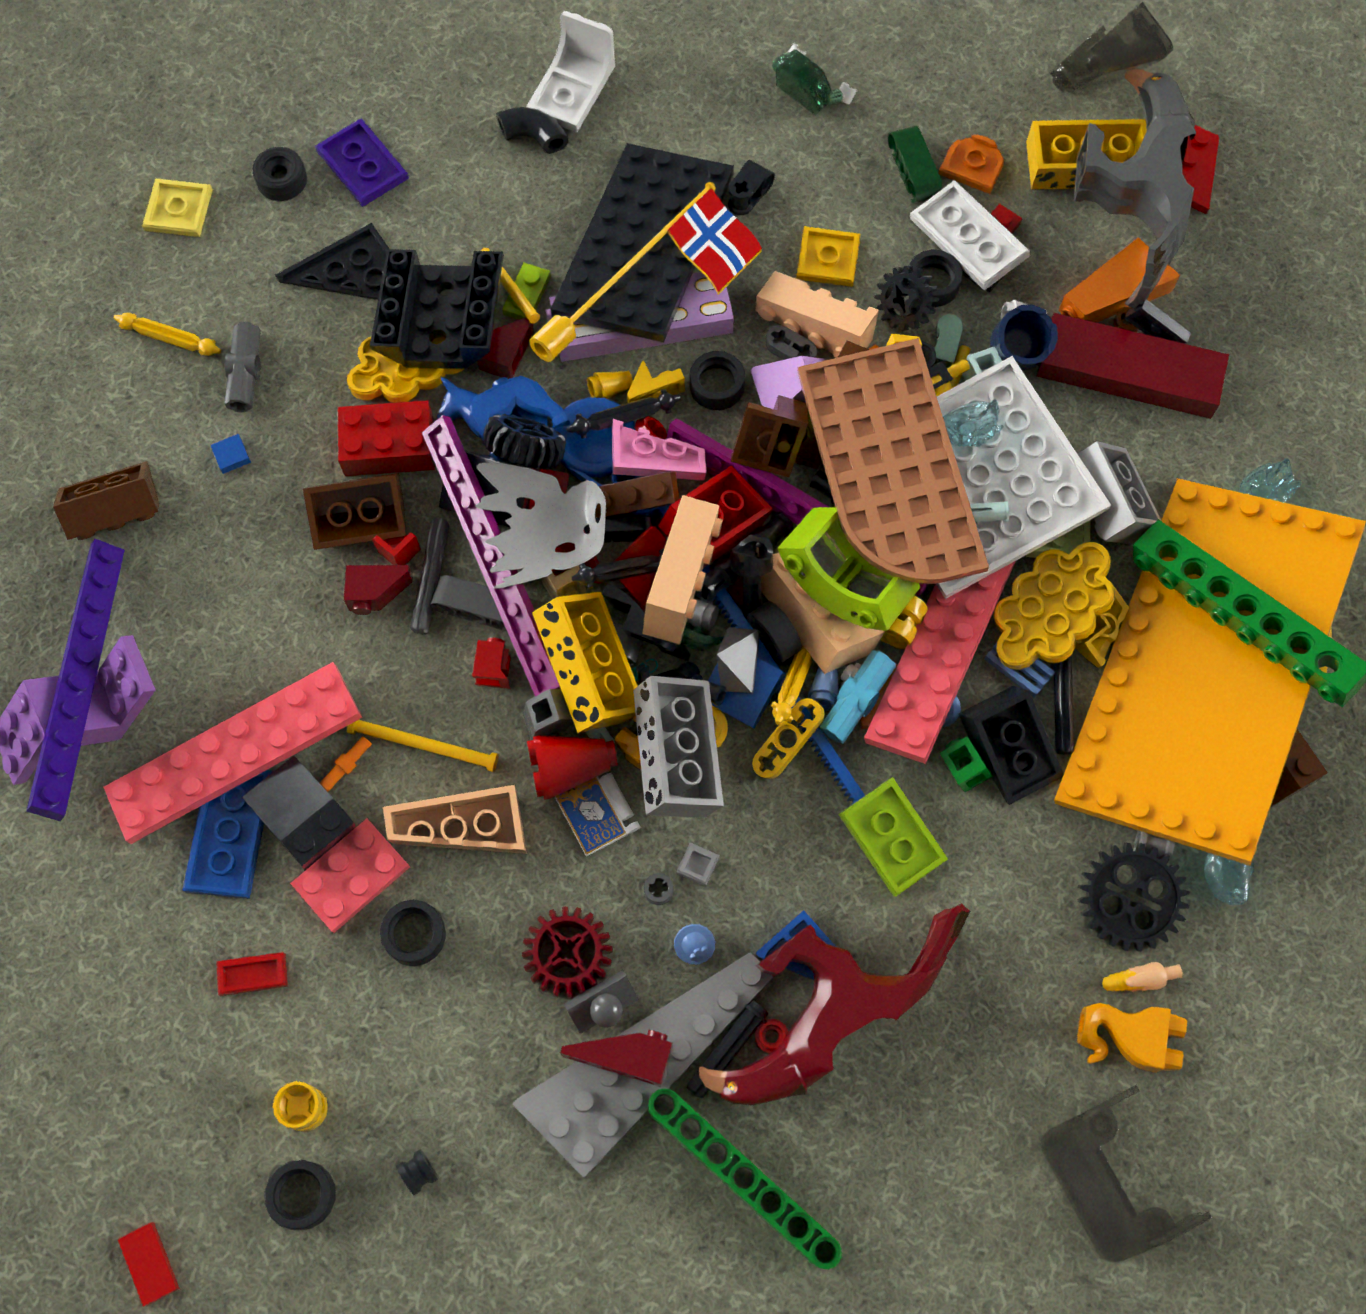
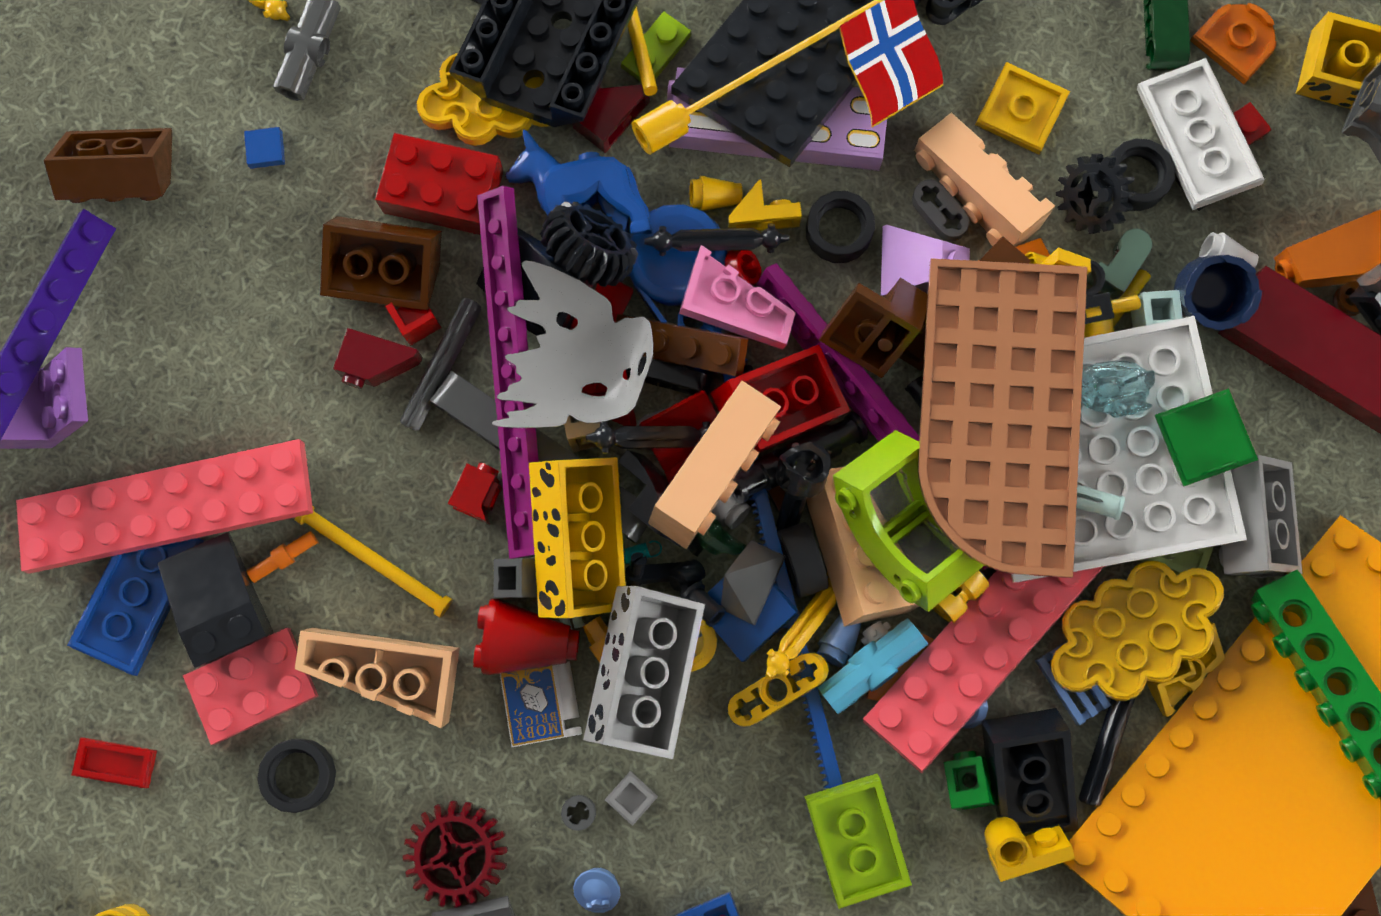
camera: 20 degrees right, 10 degrees up
(1027, 802) = (1024, 853): none -> yellow plate
(1052, 440) = (1206, 437): none -> green piece

